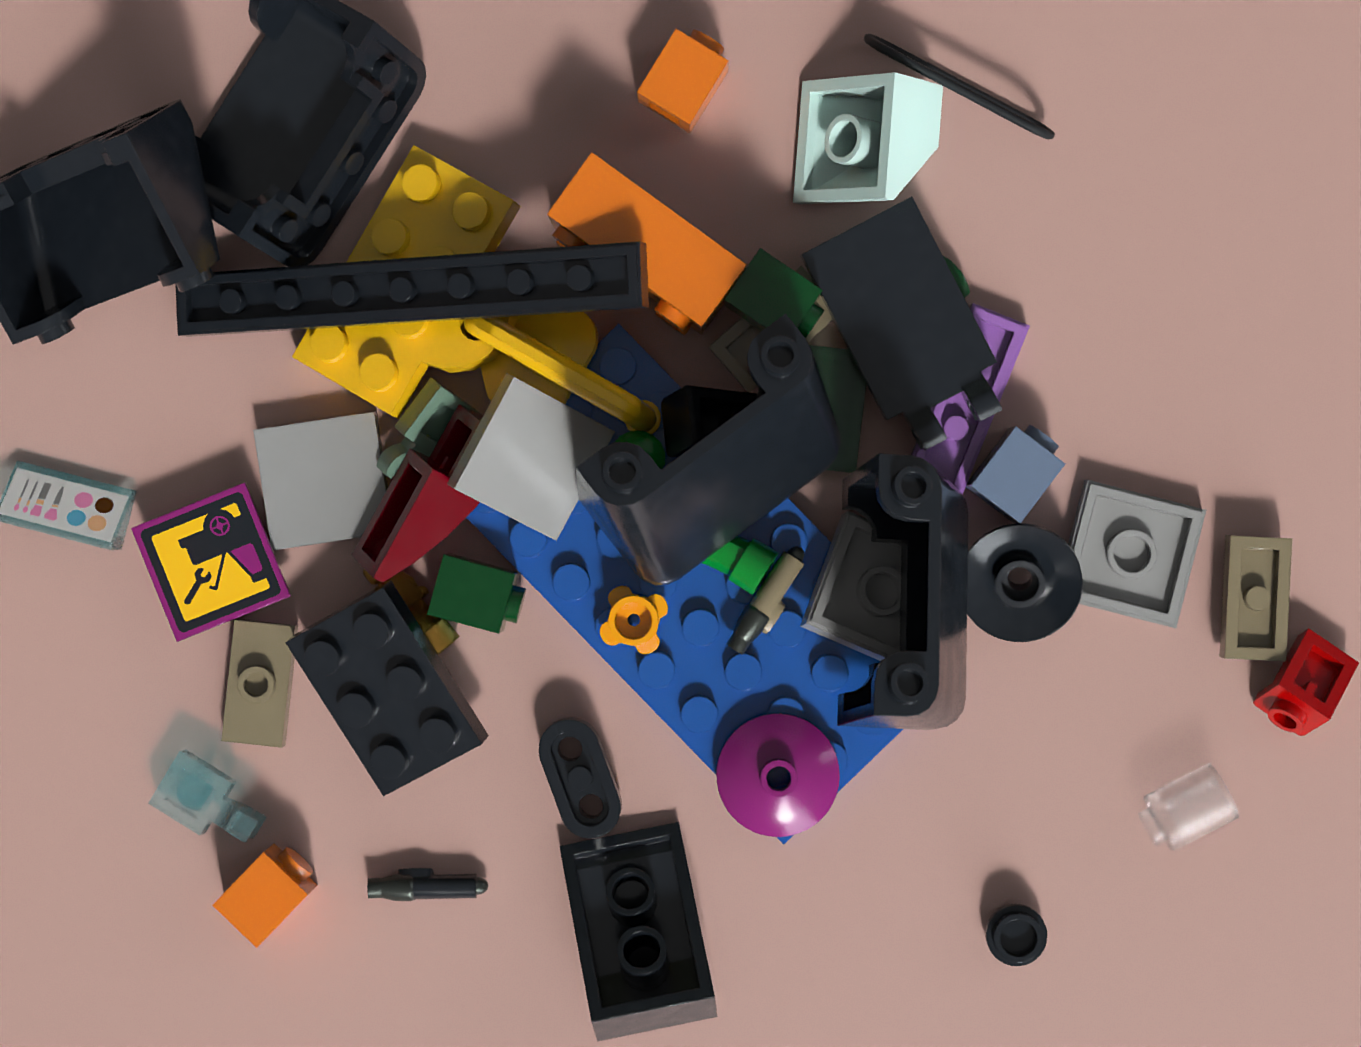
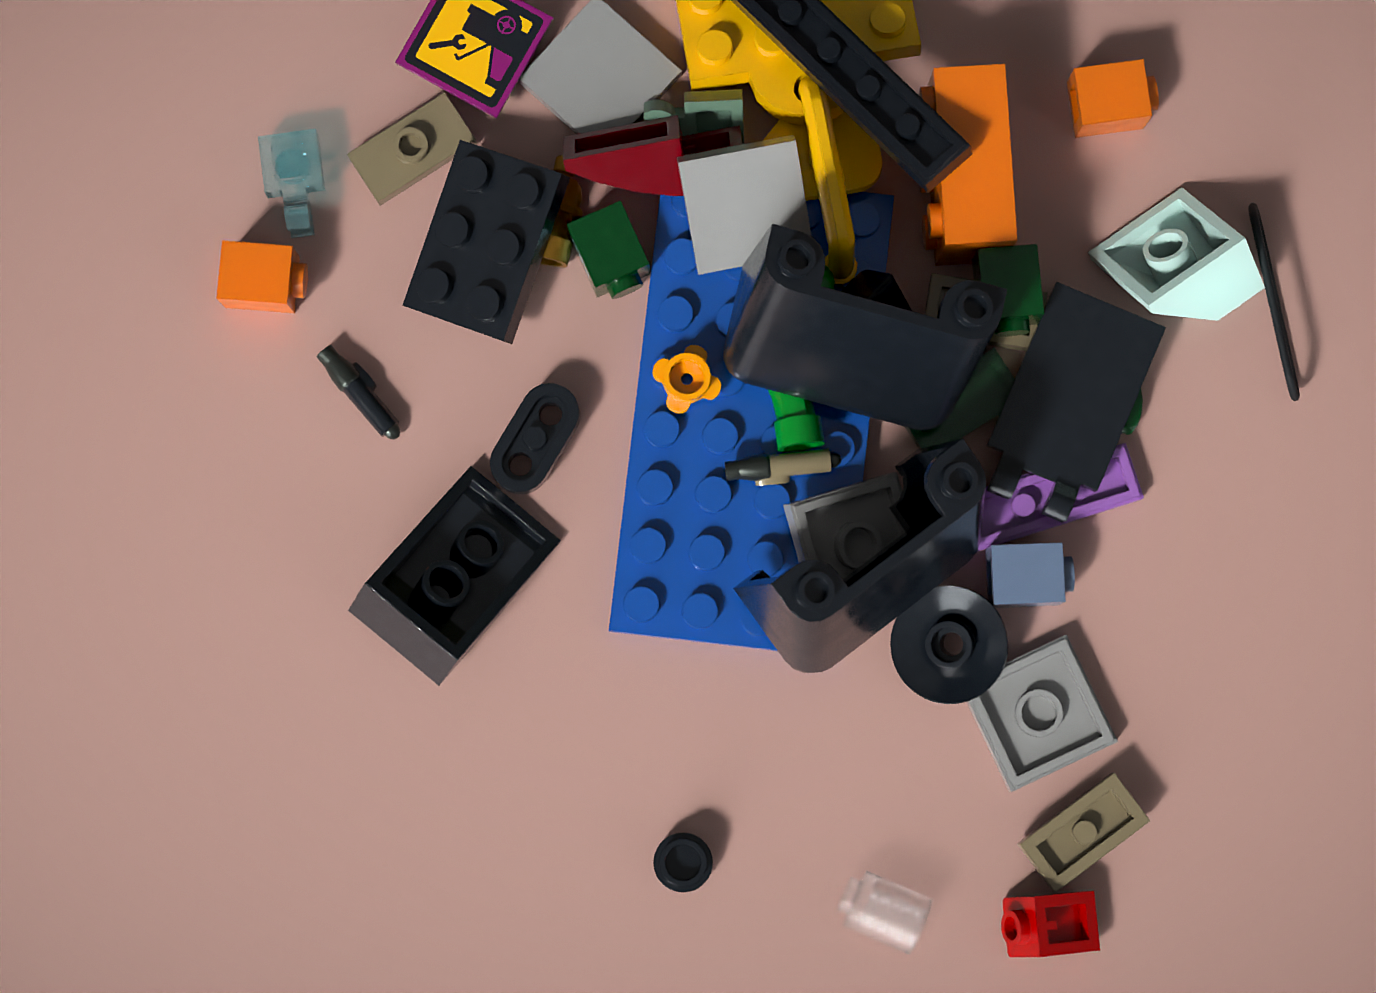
camera: 50 degrees right, 5 degrees down
(770, 743) = (663, 612): magenta dish -> none

